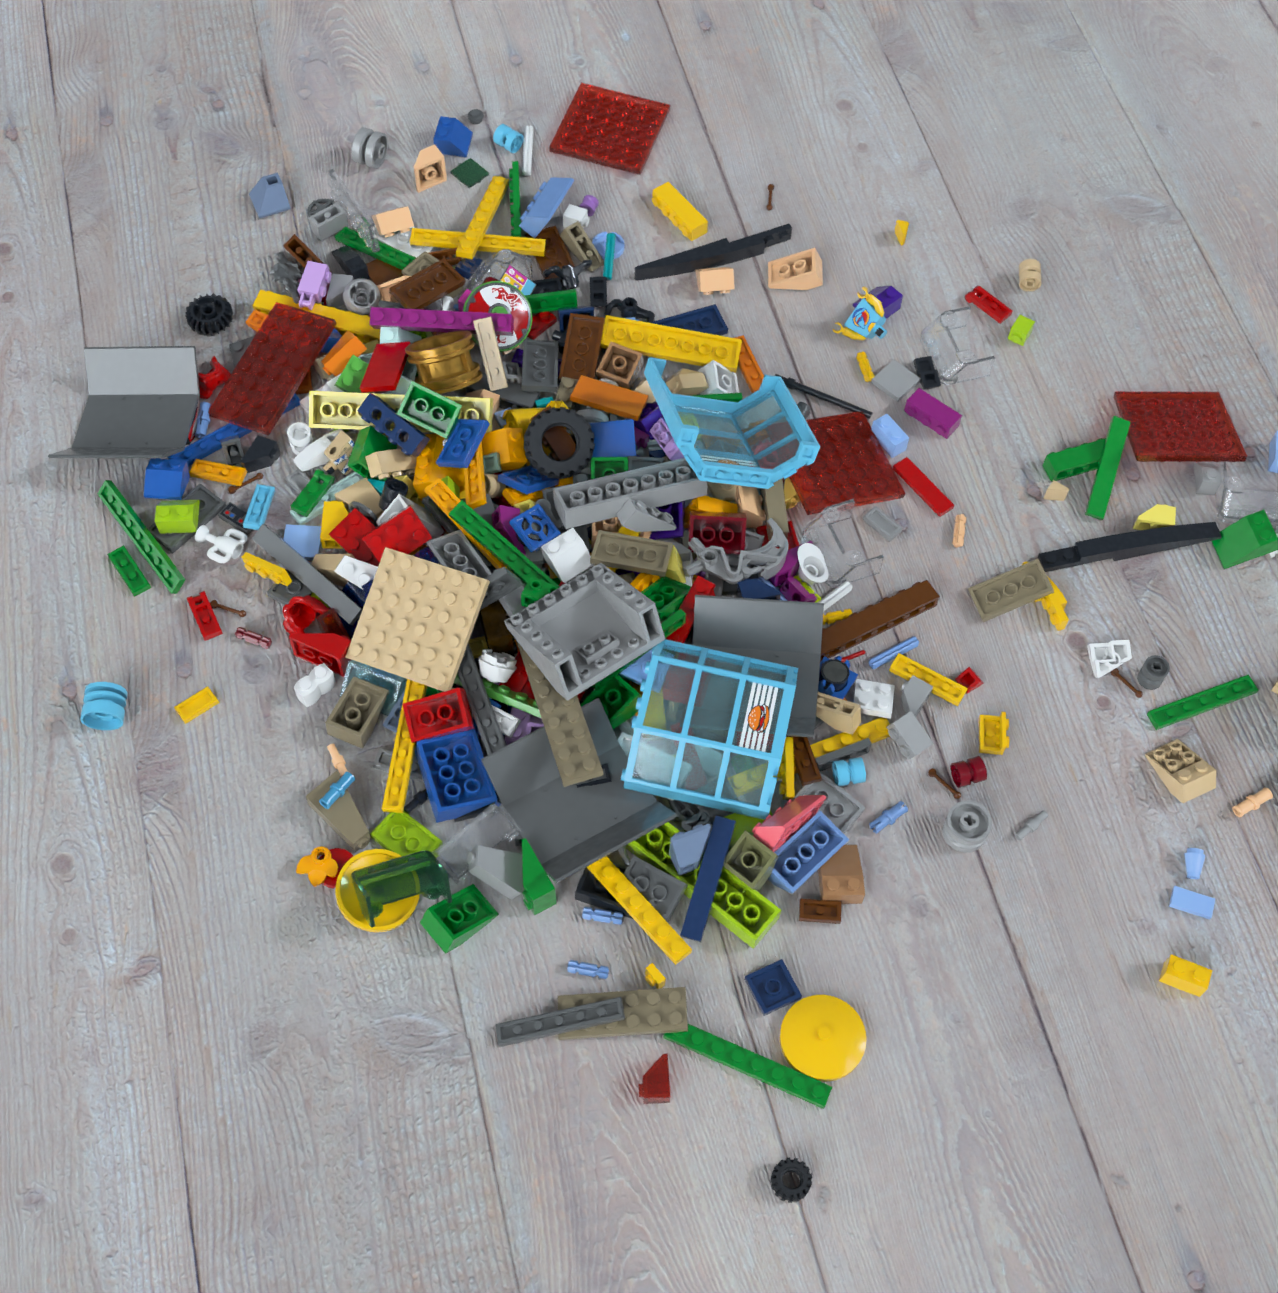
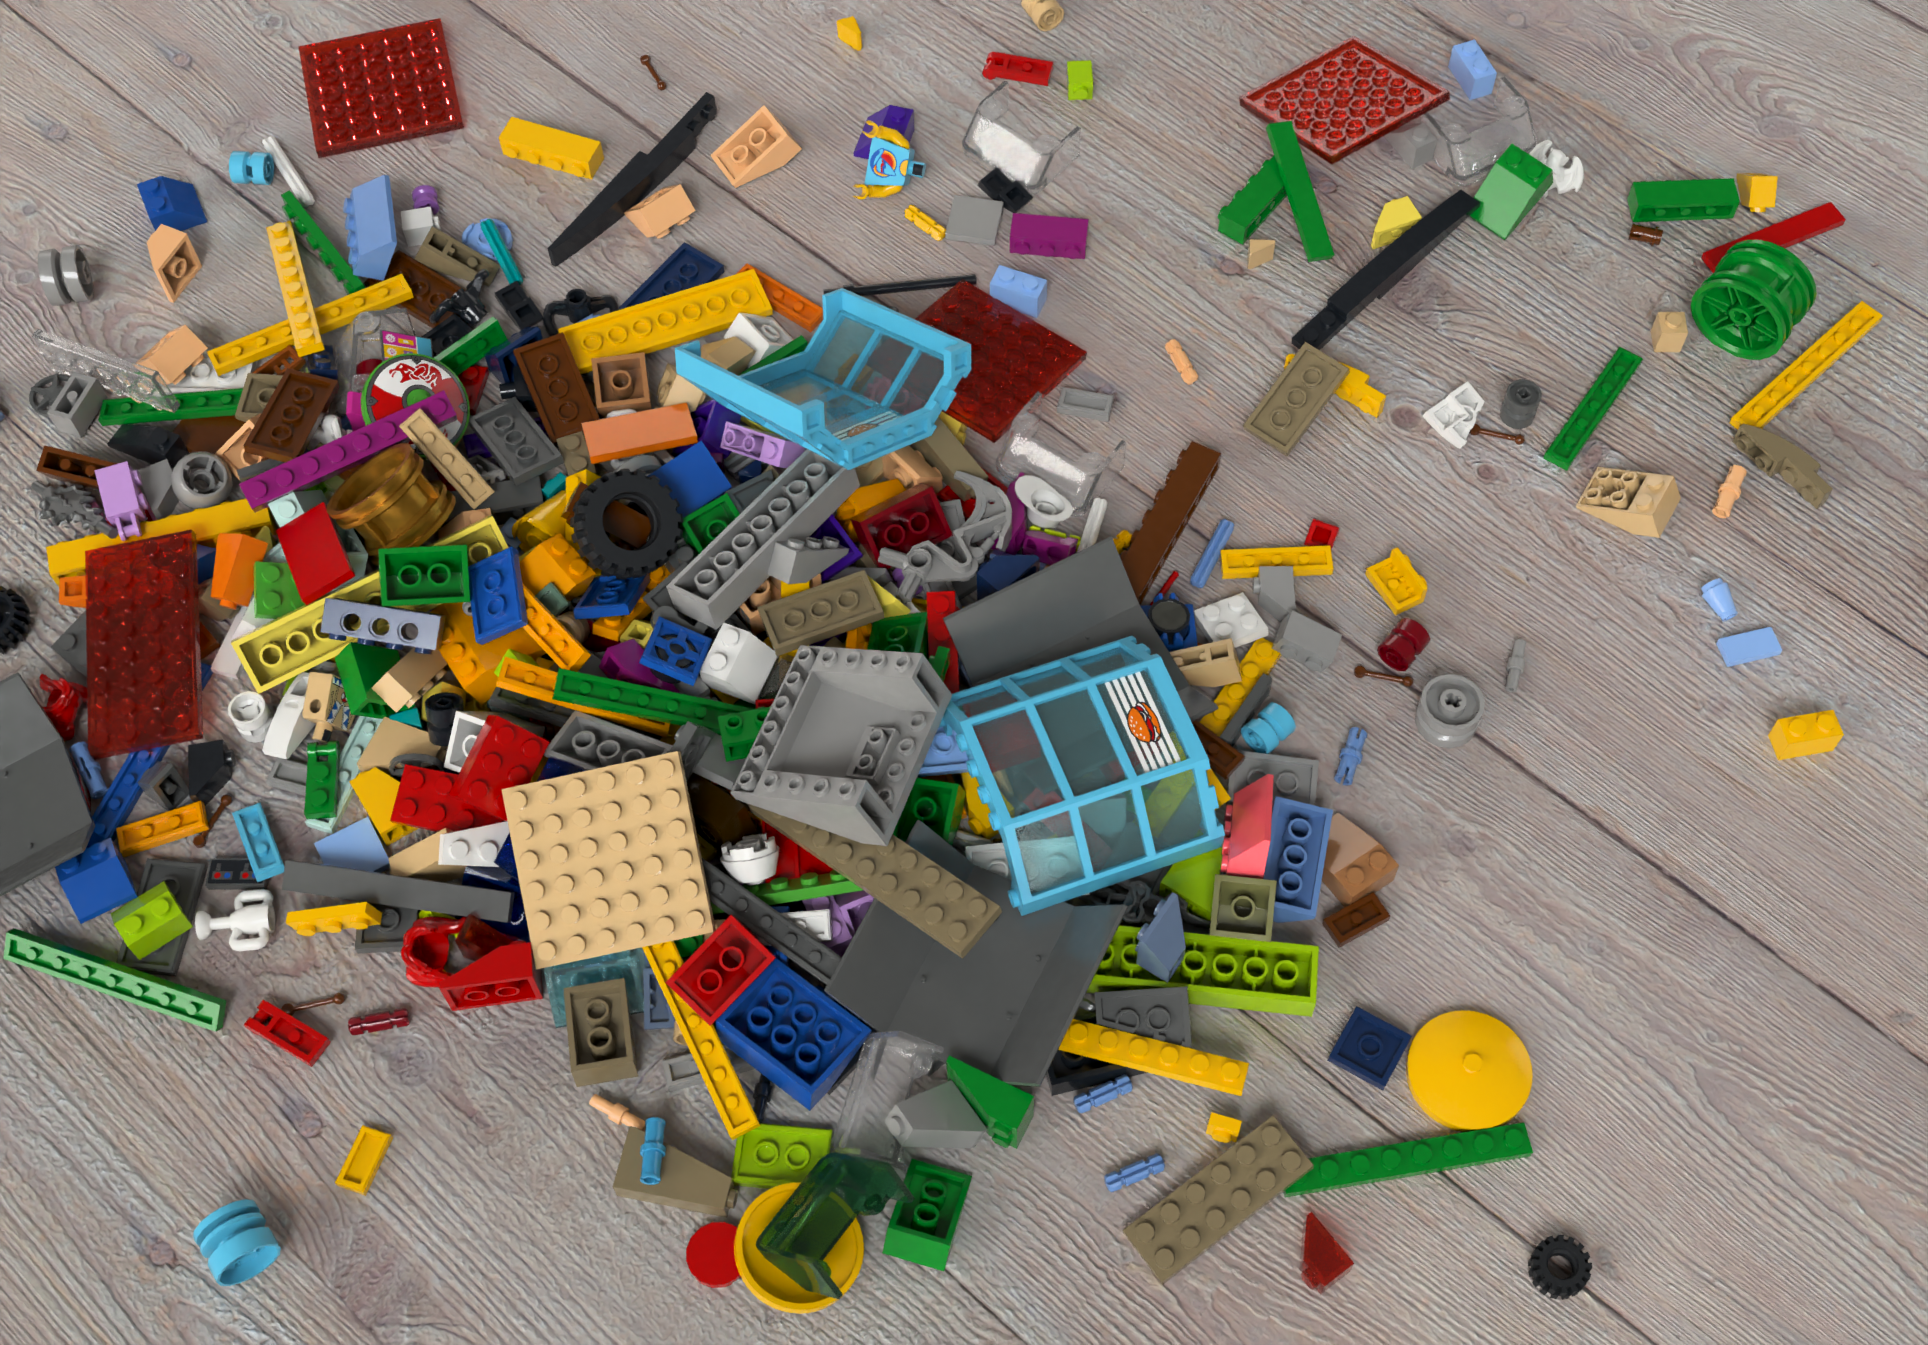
camera: 30 degrees left, 0 degrees up
(129, 571) = (130, 1037): green tile -> none
(317, 683) = (517, 1025): white brick -> none
(318, 869) = (695, 1272): light orange plate -> none
(469, 173) = (227, 240): clear green piece -> none
(475, 116) = (182, 161): dark grey plate -> none
(560, 1021) = (1152, 1261): dark grey tile -> none
(708, 879) = (1210, 965): dark blue tile -> none
(923, 486) = (1100, 332): red tile -> none

